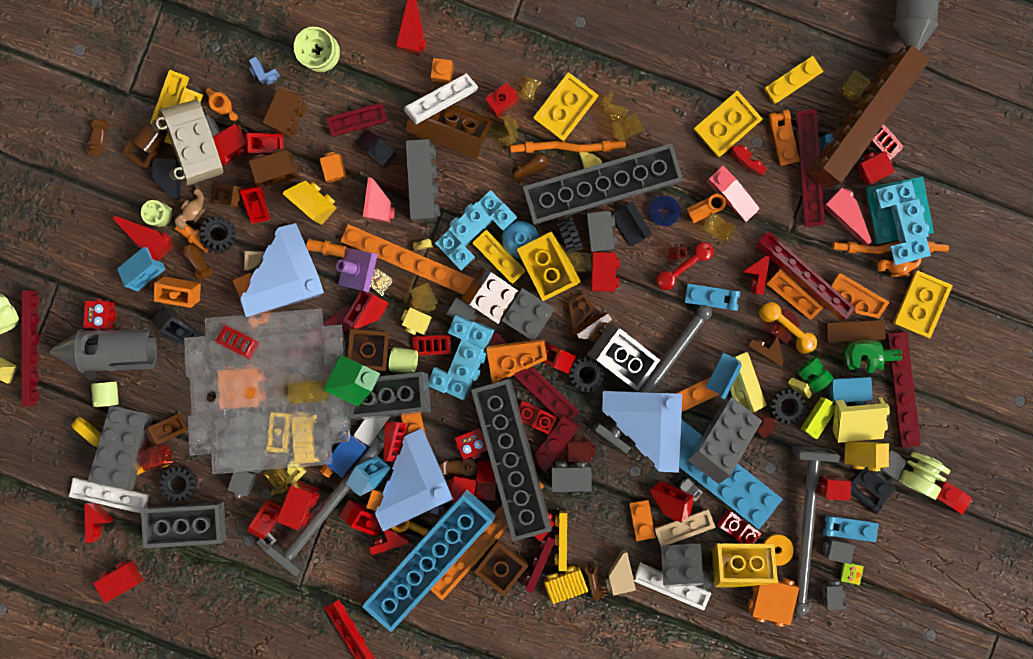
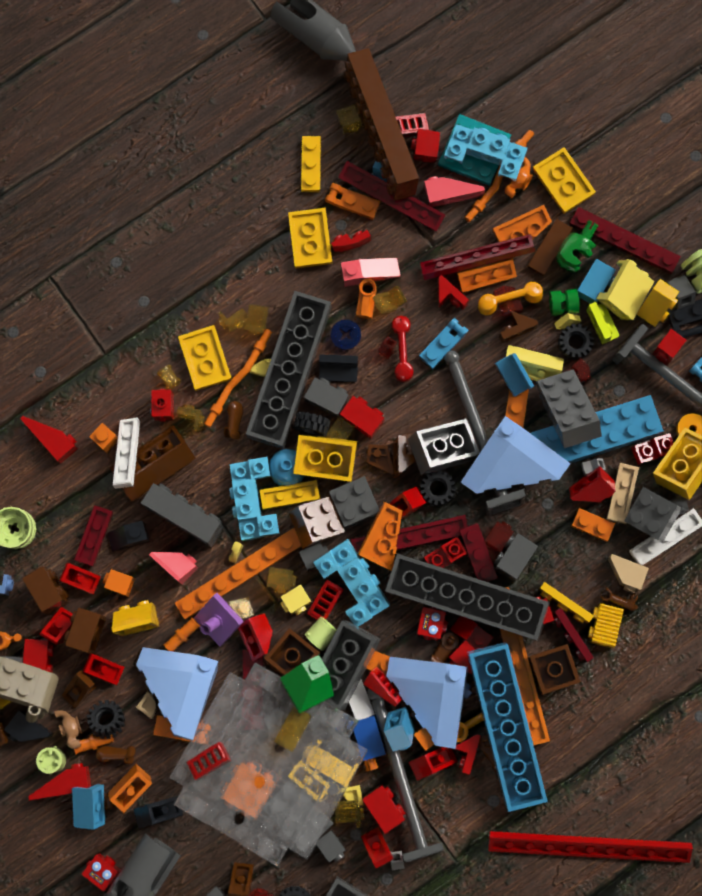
camera: 50 degrees left, 10 degrees down
(314, 133) = (80, 578): none -> red slope

